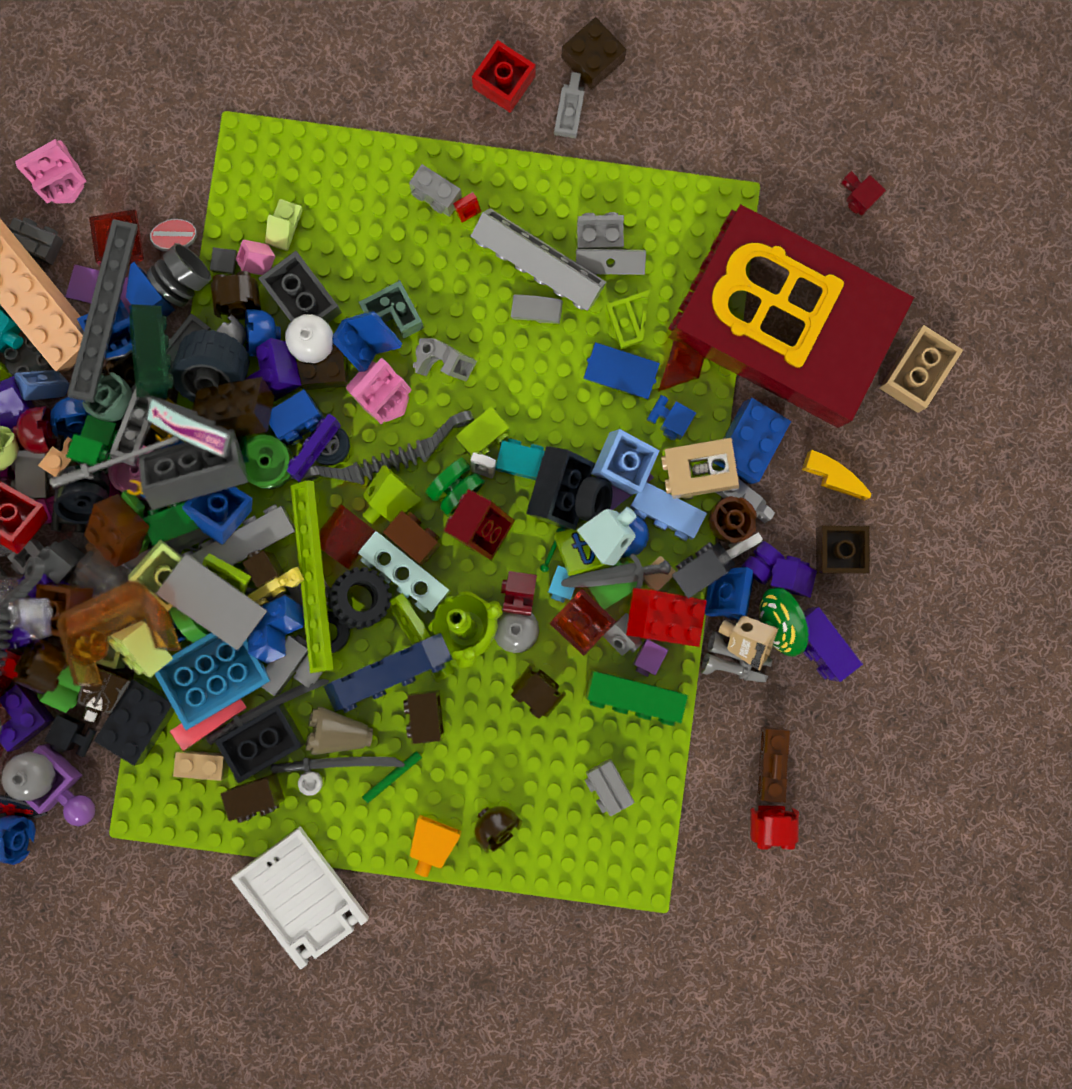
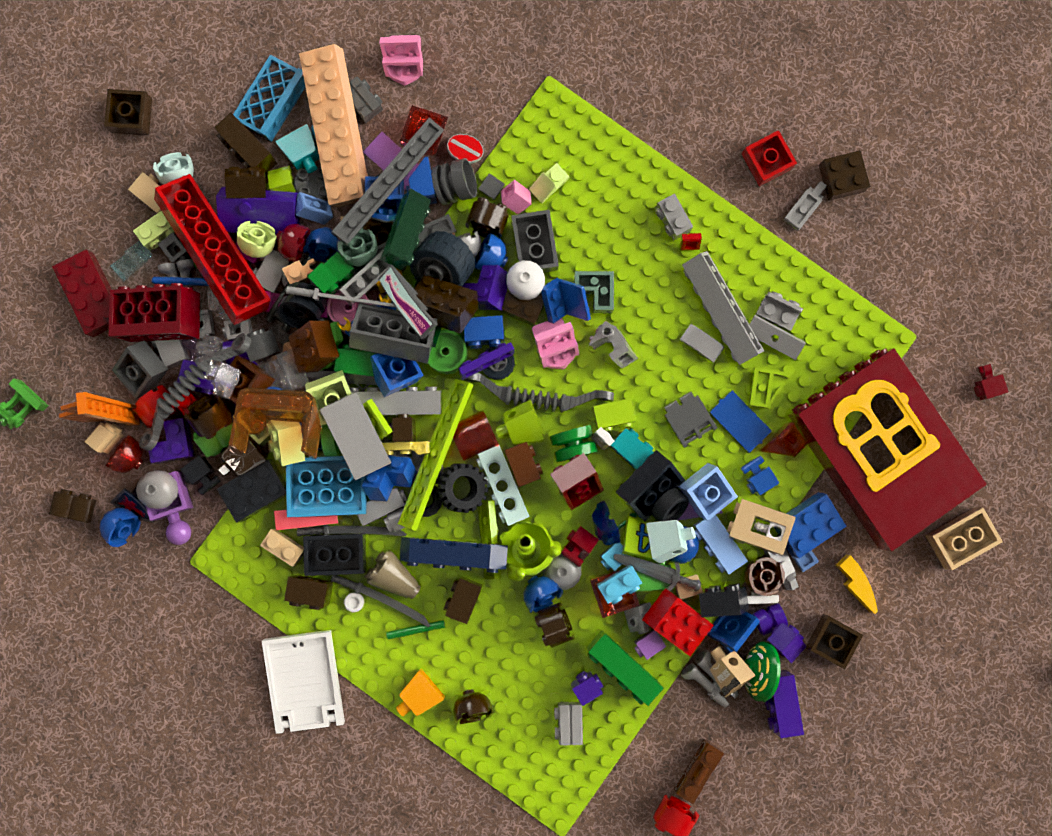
camera: 30 degrees right, 0 degrees up
(504, 665) = (540, 592): none -> blue cylinder
(535, 558) = (605, 528): none -> clear blue cylinder
(564, 396) = (688, 418): none -> dark grey plate
(582, 609) = (619, 584): none -> medium azure brick
(606, 738) = (587, 687): none -> dark purple brick
(768, 481) = (806, 561): none -> medium blue tile

